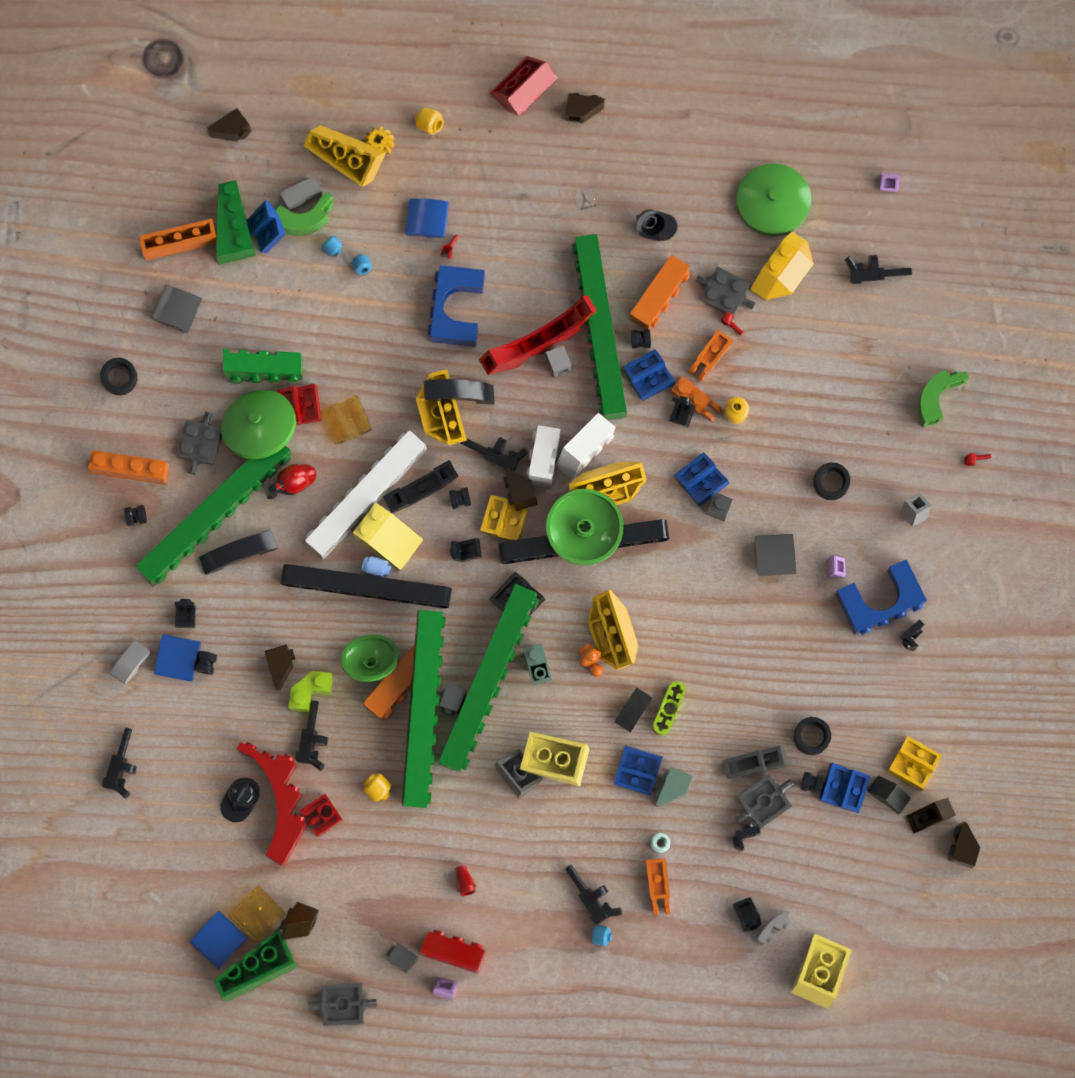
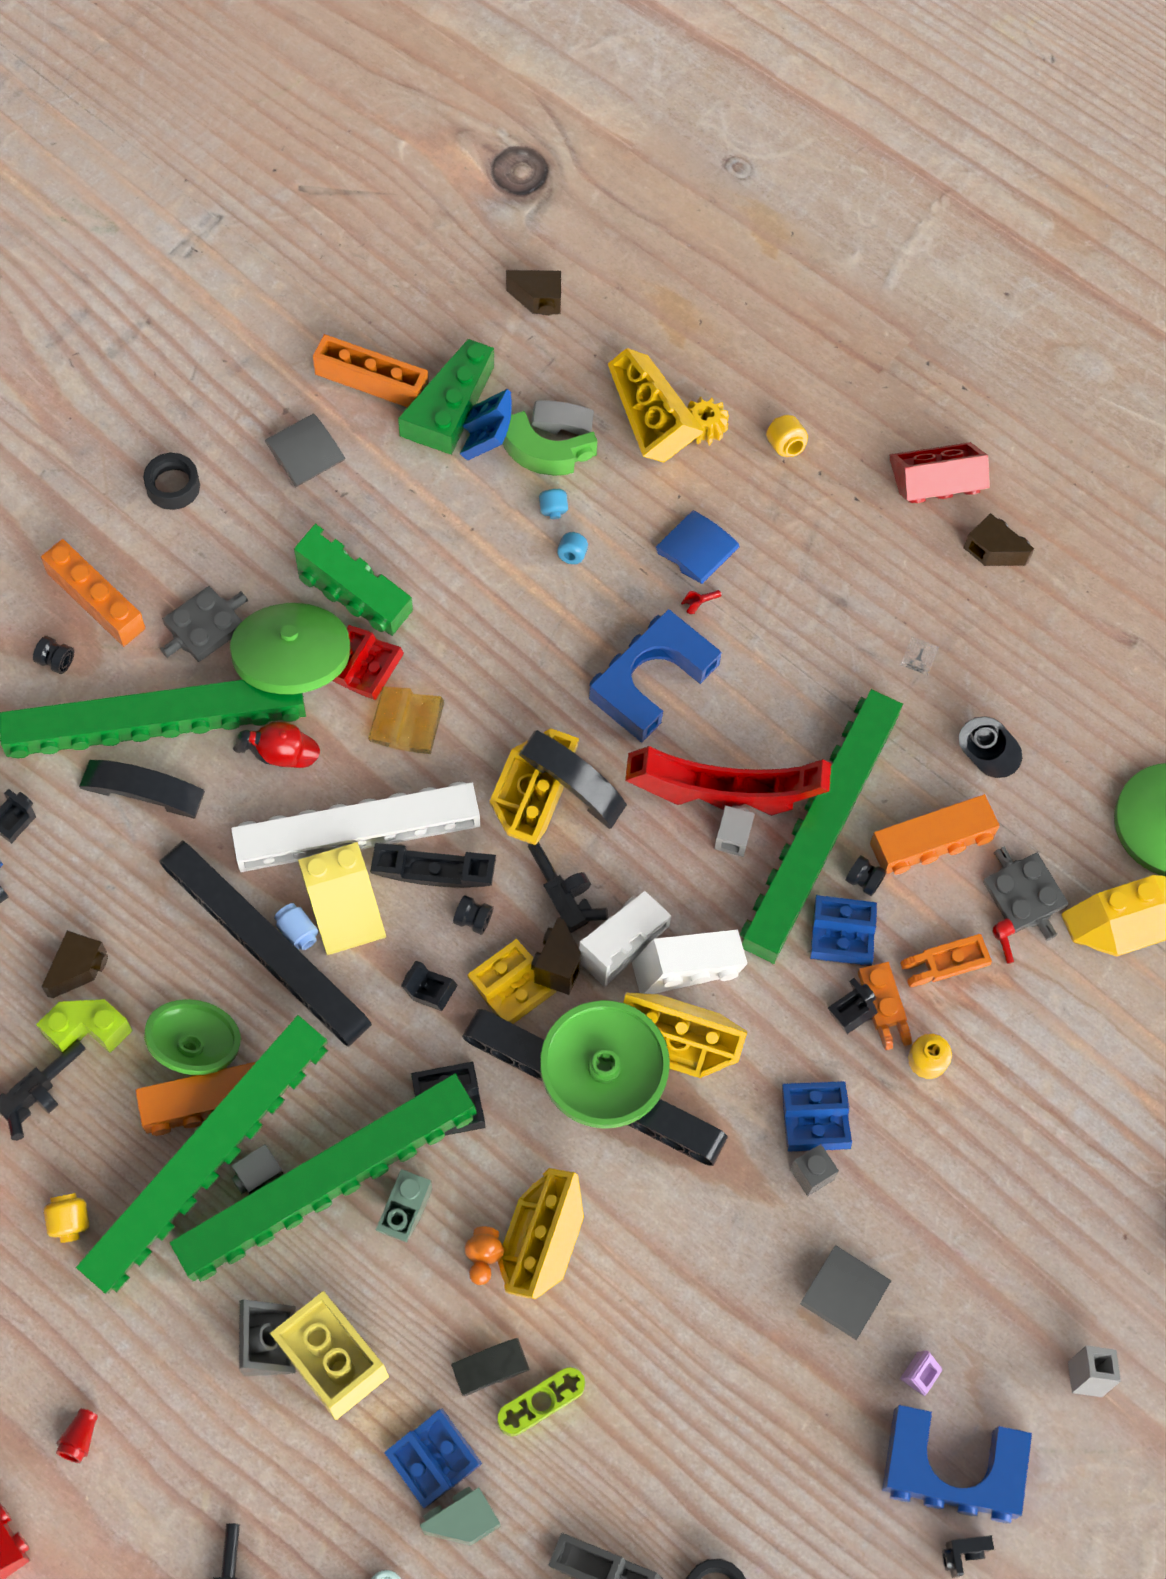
camera: 30 degrees right, 10 degrees down
(831, 466) = (1015, 1228): black tyre -> none

